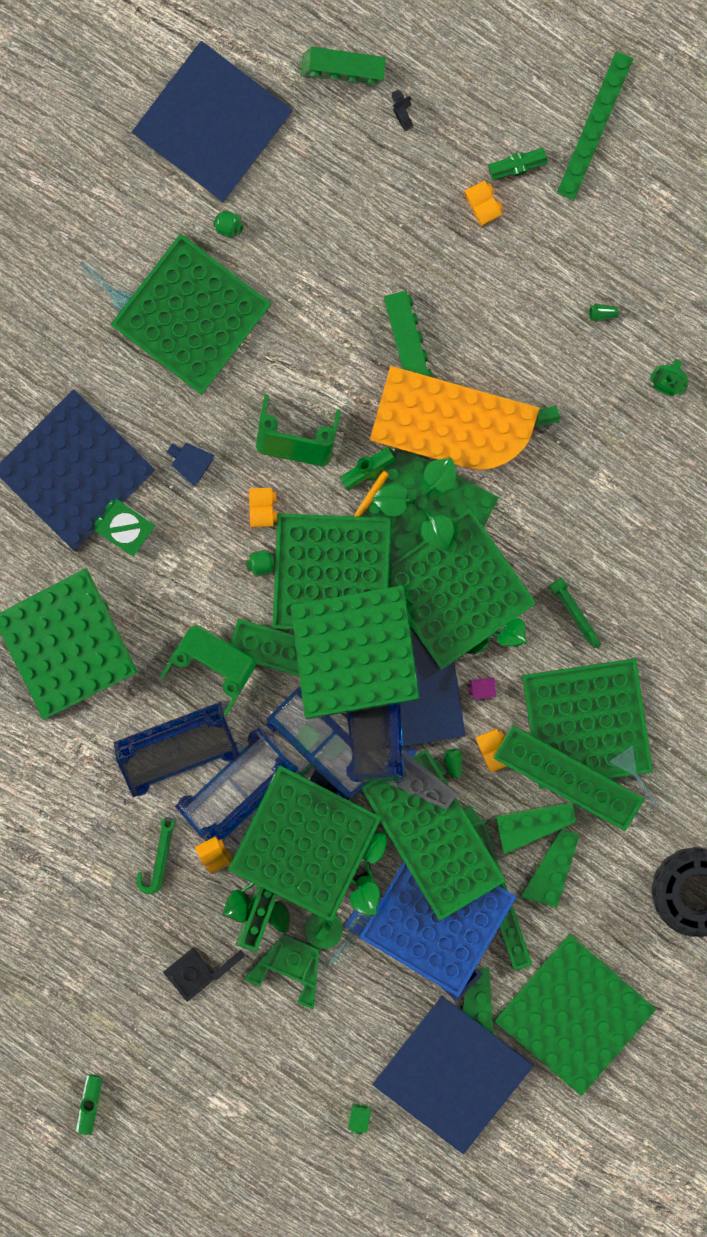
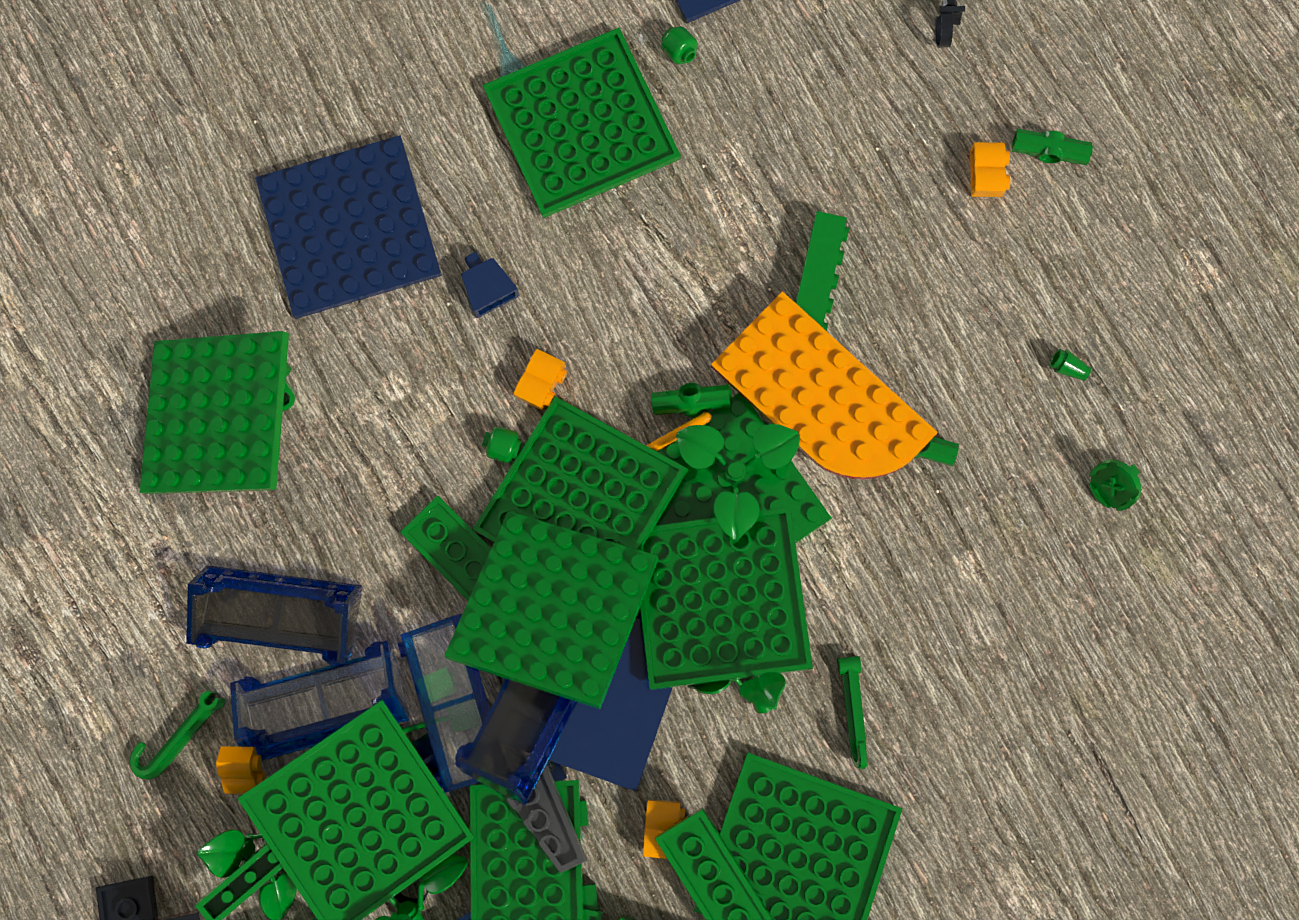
camera: 35 degrees right, 10 degrees down
(123, 526) = (365, 315): green brick -> none
(218, 656) = (386, 524): green windscreen -> none
(295, 448) = (618, 331): green windscreen -> none
(453, 761) = (604, 816): green cone -> none
(482, 688) = (688, 741): magenta brick -> none
(594, 126) = (1163, 152): green plate -> none

